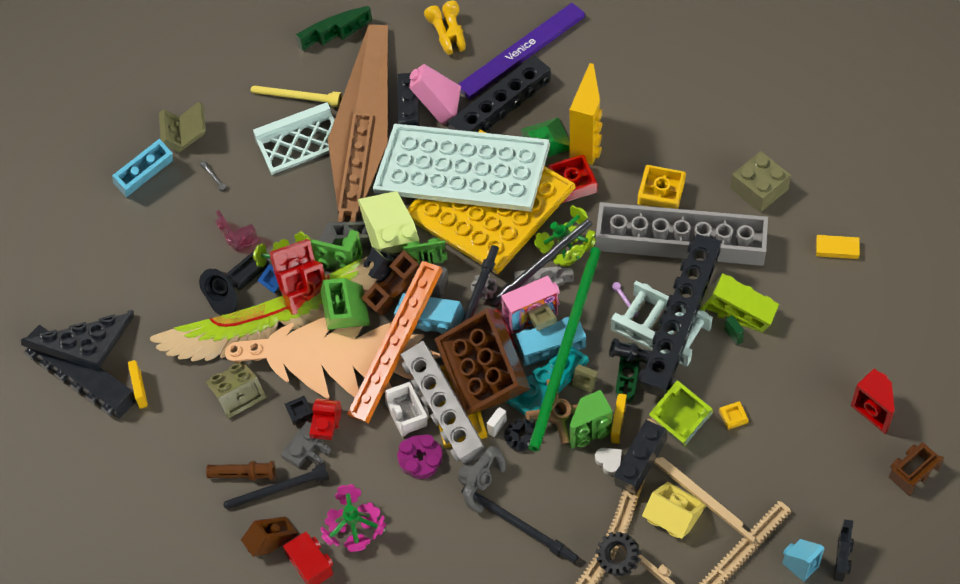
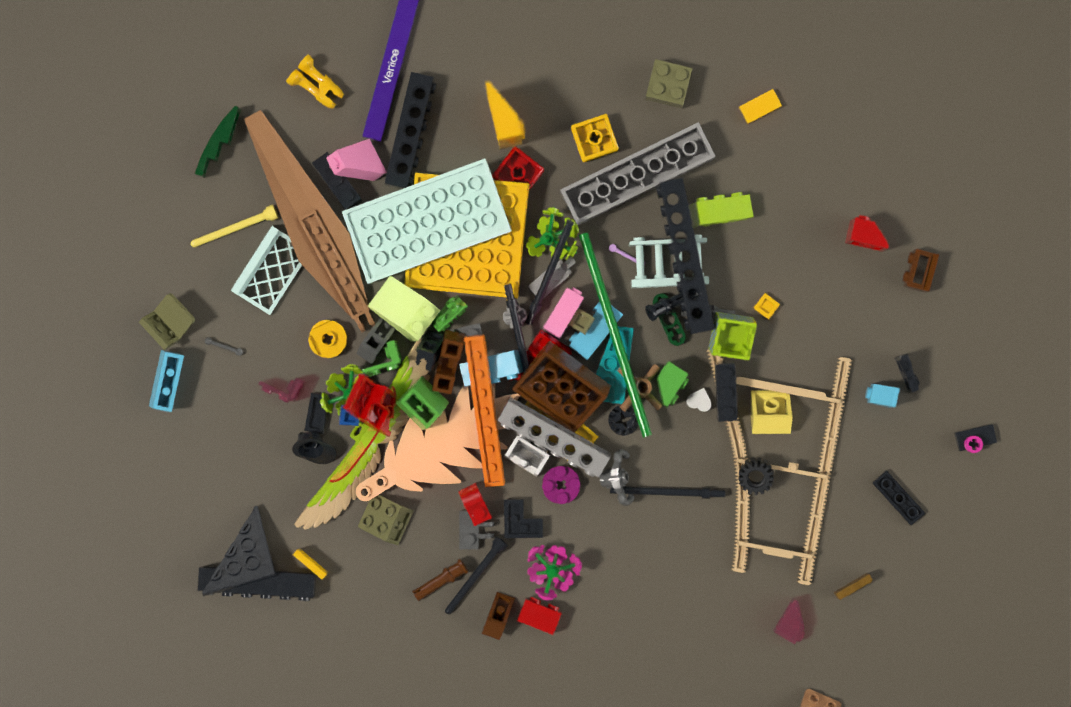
camera: 35 degrees left, 30 degrees up
(298, 410) = (447, 506): black plate -> none
(309, 225) = (333, 329): none -> yellow plate
(351, 464) = (516, 526): none -> black plate
(496, 422) = (600, 424): white tile -> none
(552, 131) = (469, 141): green slope -> none
(585, 378) = (641, 346): olive plate -> none
(618, 418) = (686, 363): yellow tile -> none
(734, 330) = (727, 234): dark green tile -> none

